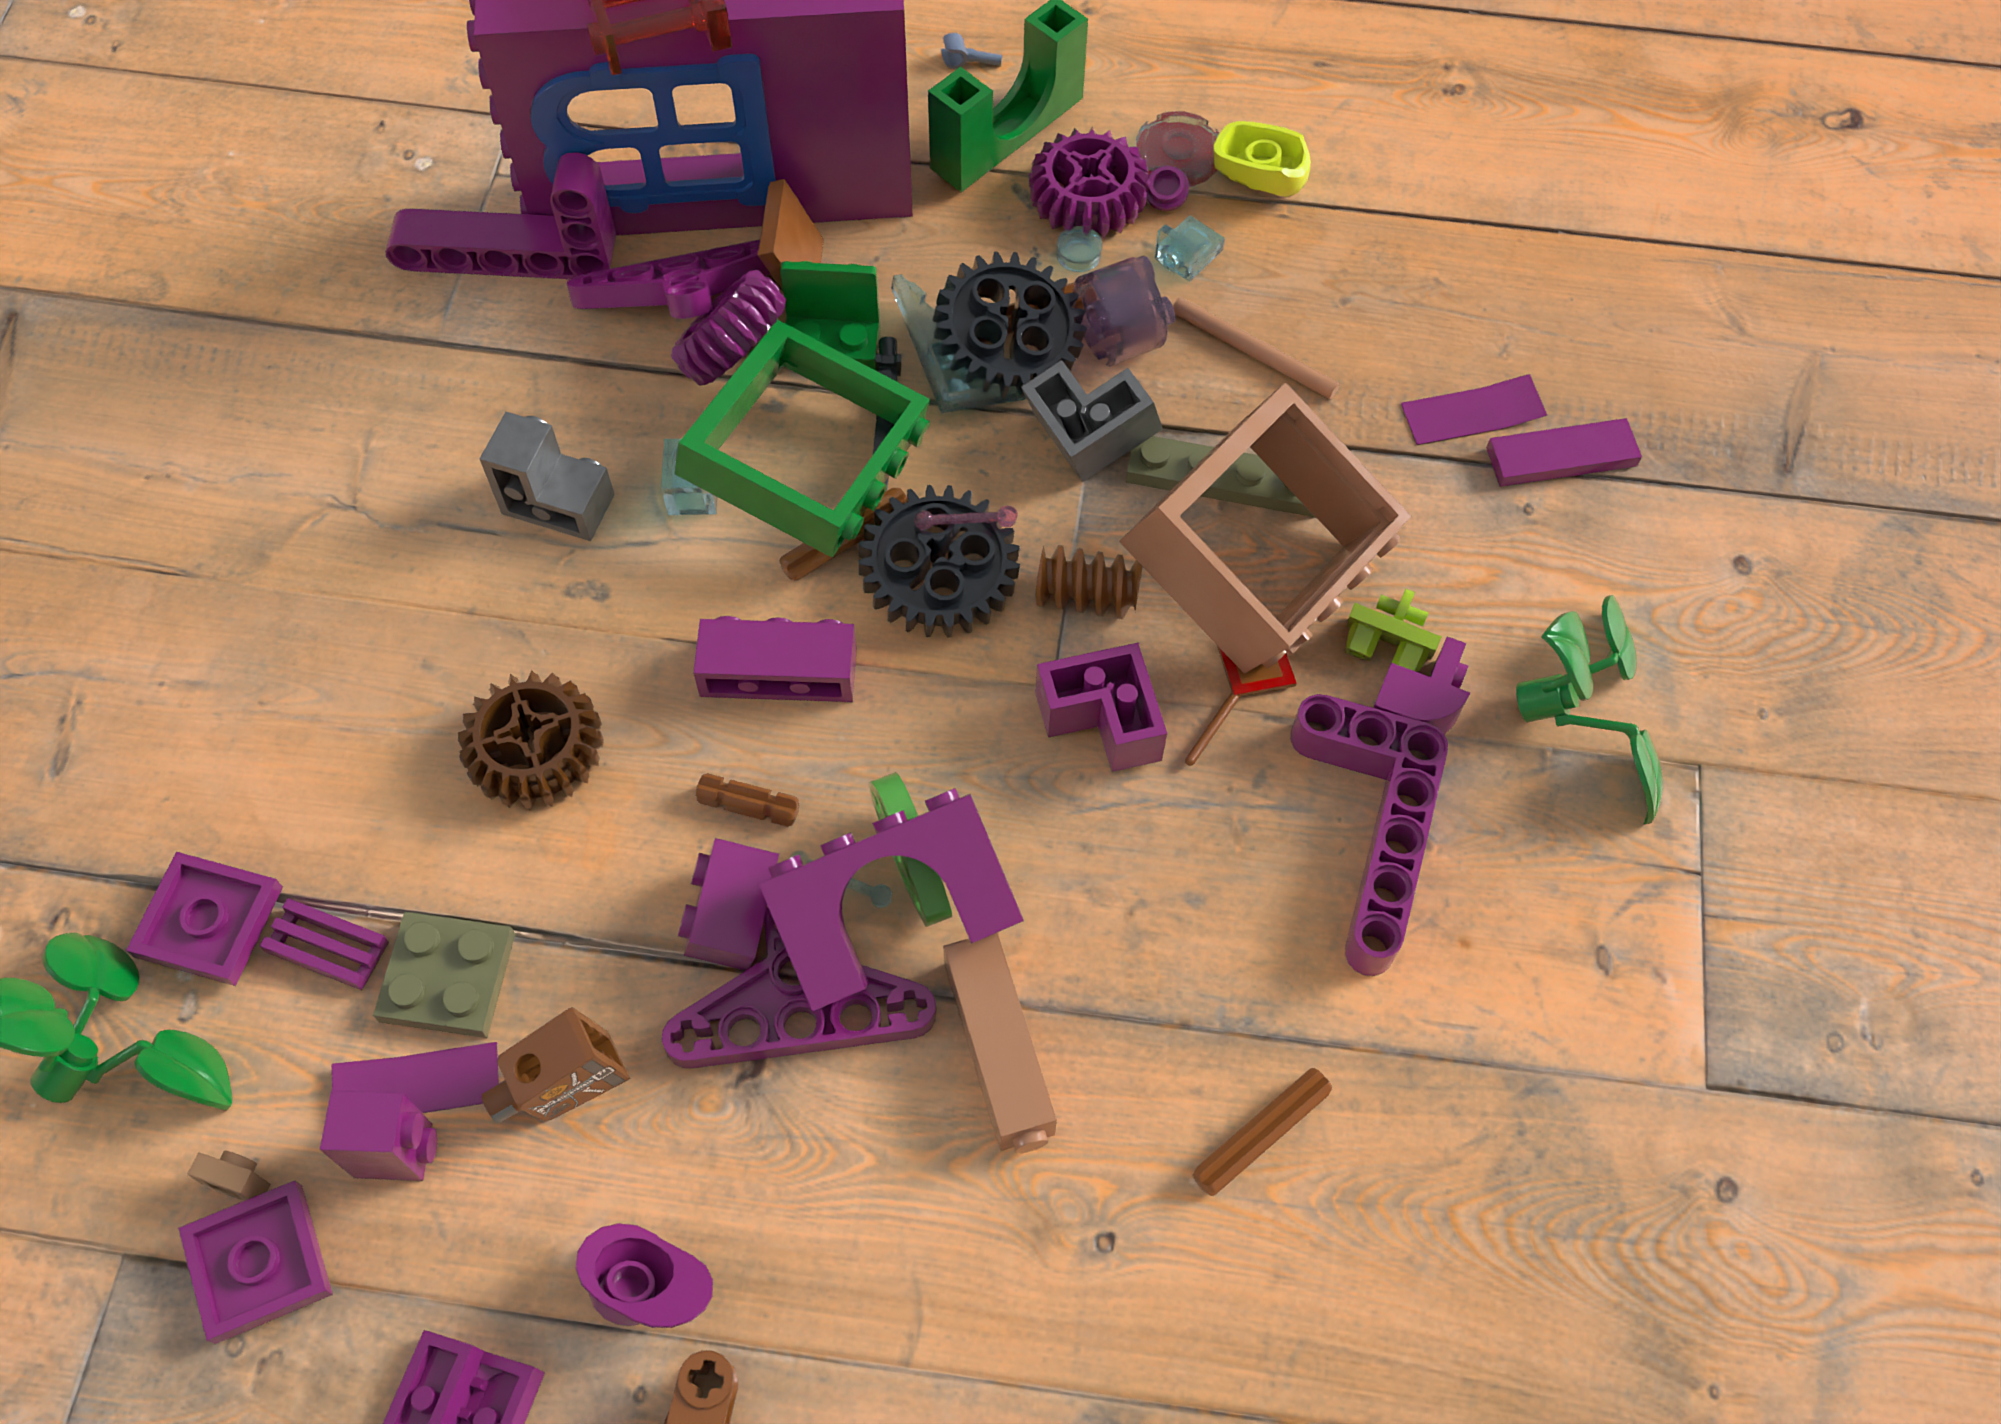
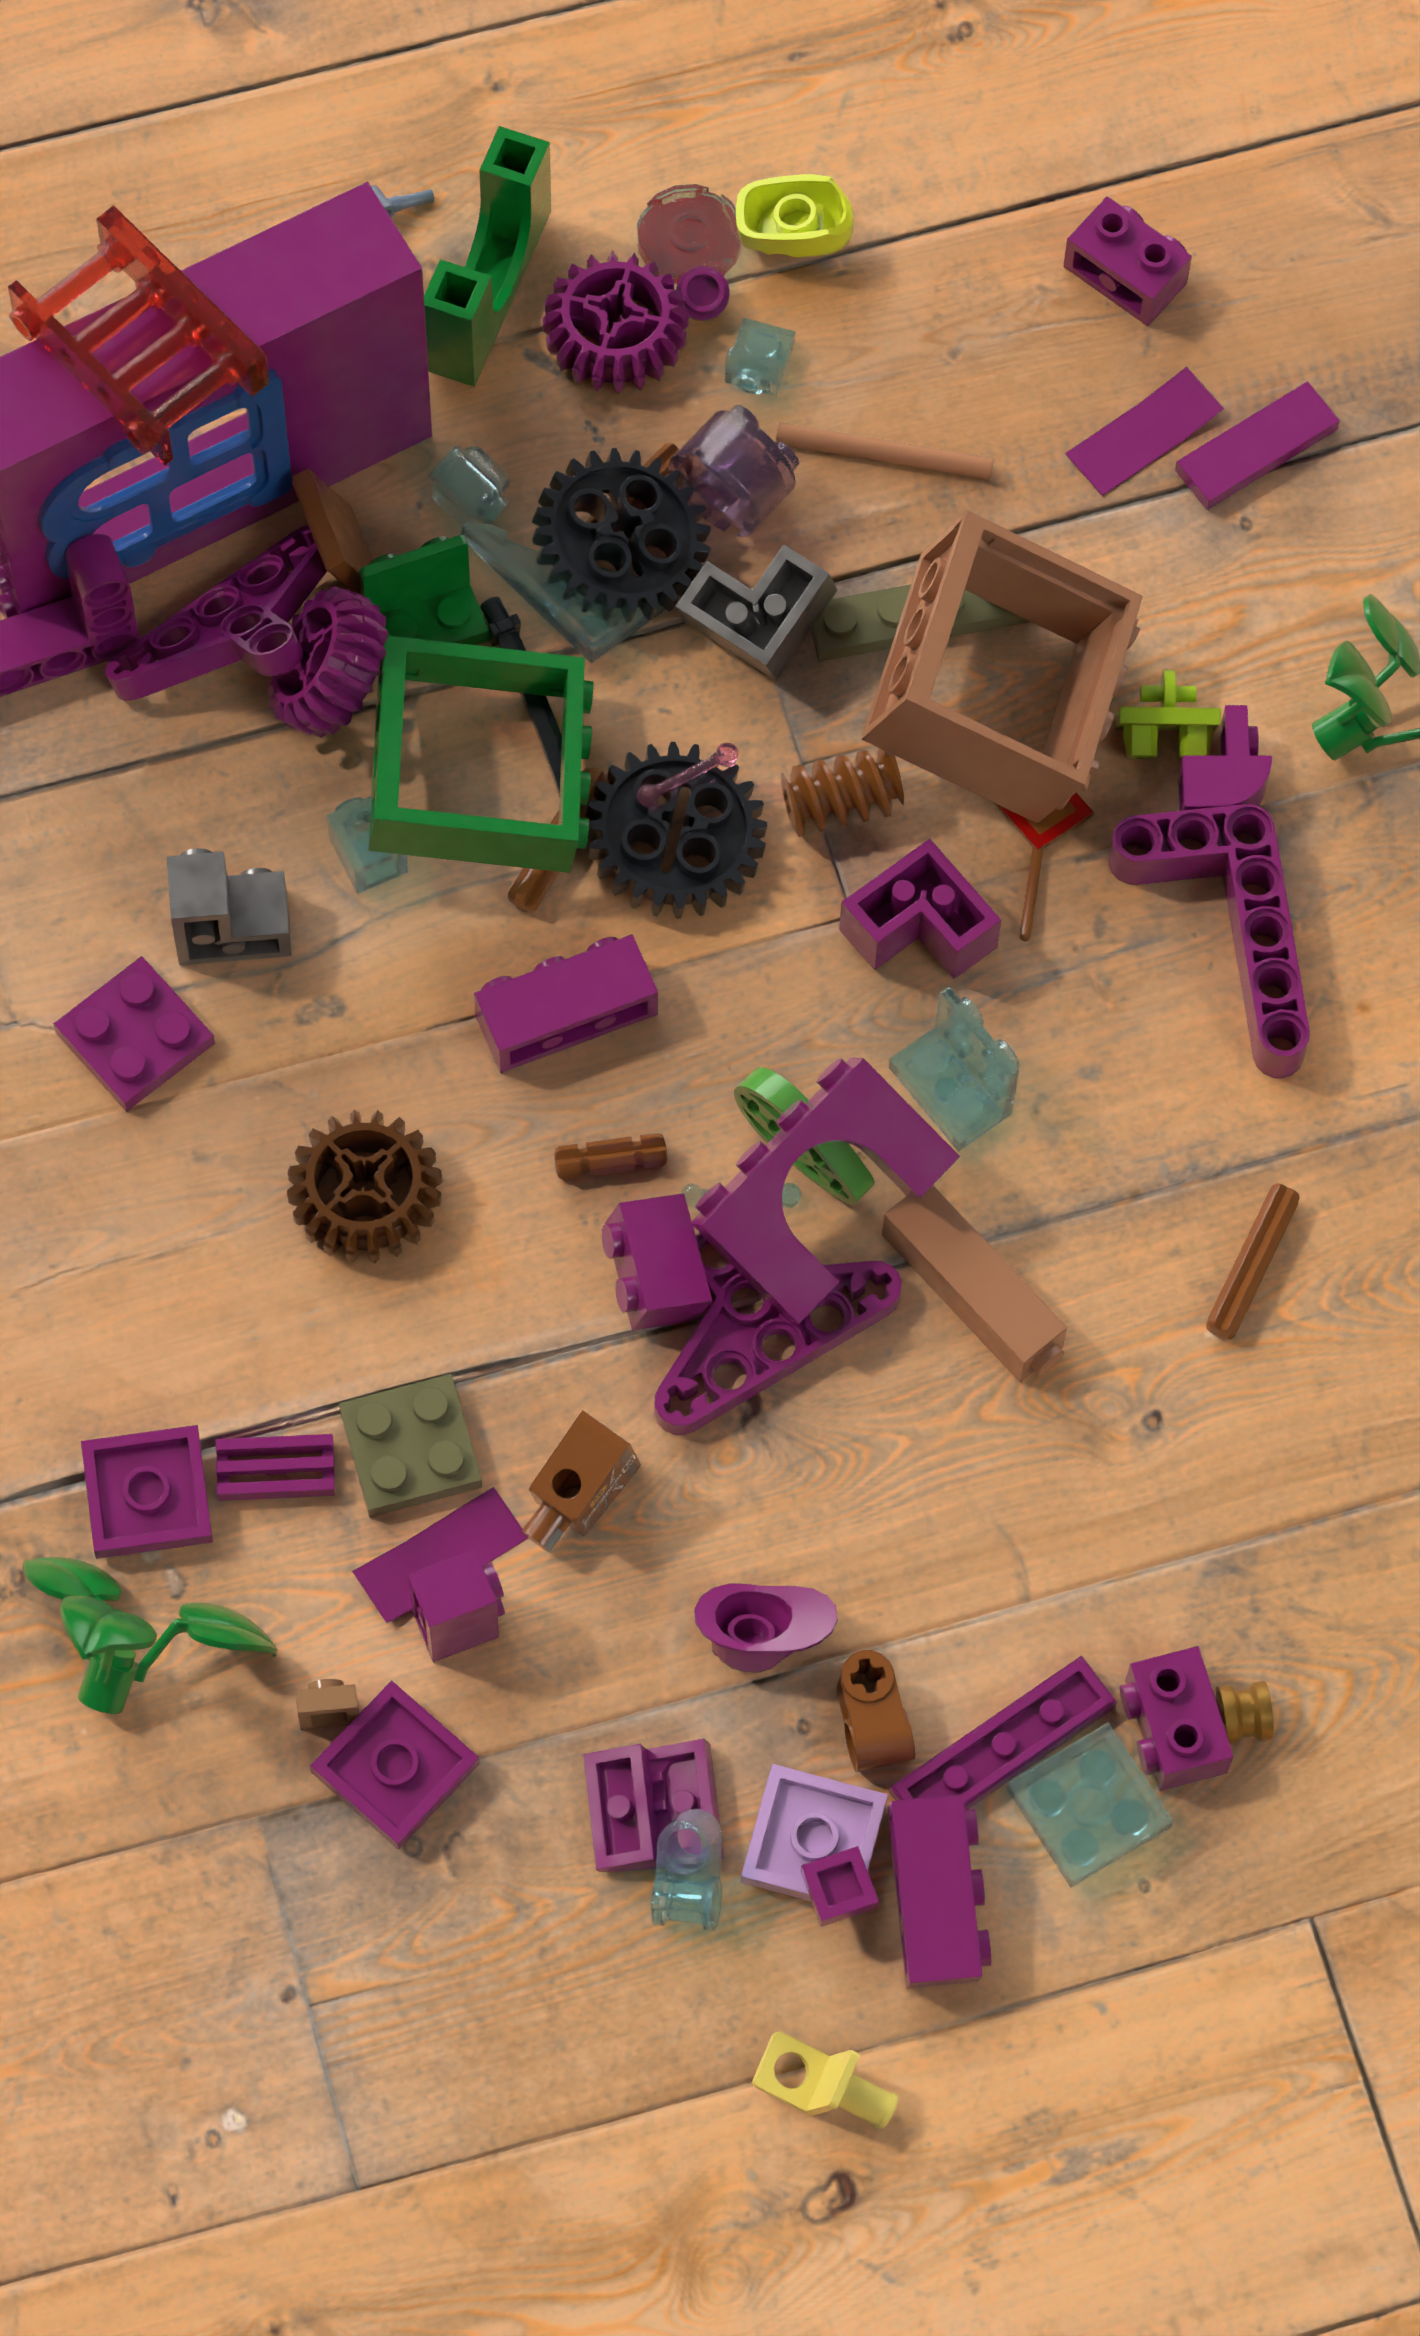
camera: 25 degrees left, 5 degrees up
(431, 550) = (134, 1033): none -> magenta plate
(916, 252) = (470, 485): none -> clear light blue head
(1073, 852) = (959, 1072): none -> clear light blue bracket
(1079, 250) = (641, 407): clear light blue tile -> none
(1514, 279) = (1127, 260): none -> magenta brick

